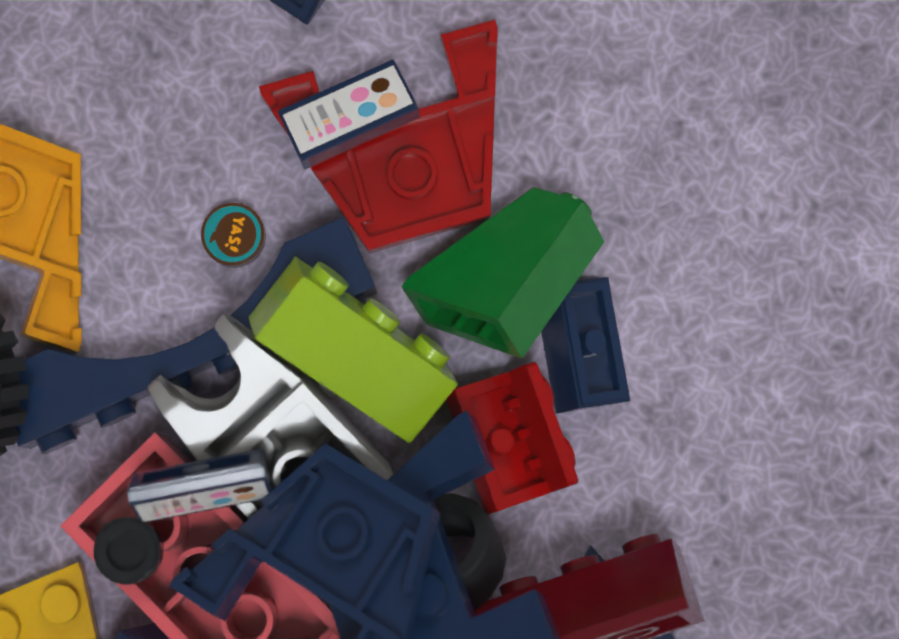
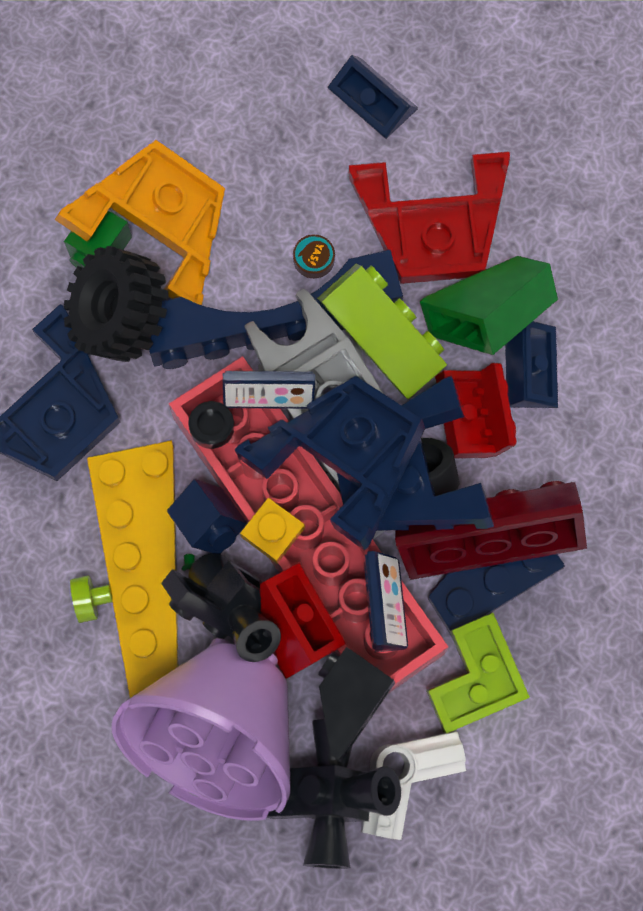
camera: 10 degrees right, 10 degrees down
(349, 114) = (405, 190): slope -> none

